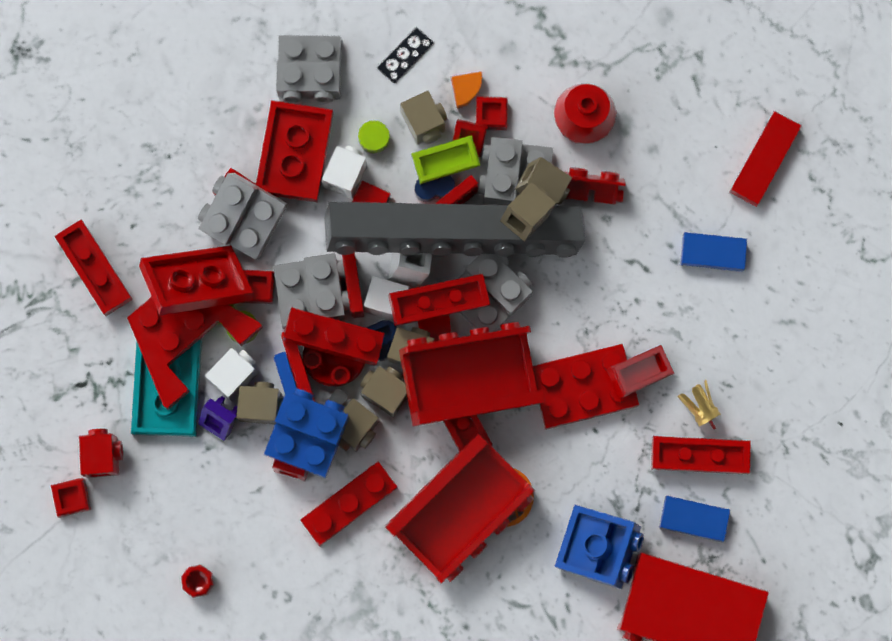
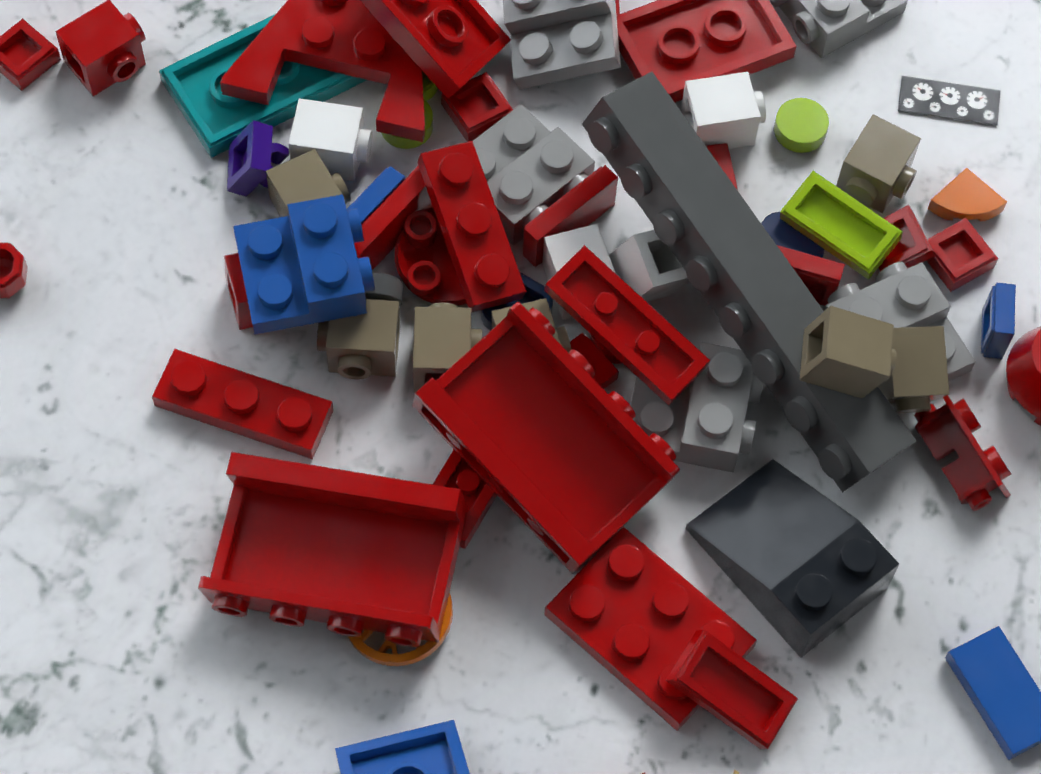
camera: 55 degrees right, 15 degrees down
(540, 122) = (998, 320): none -> blue tile
(591, 298) = (794, 554): none -> black slope

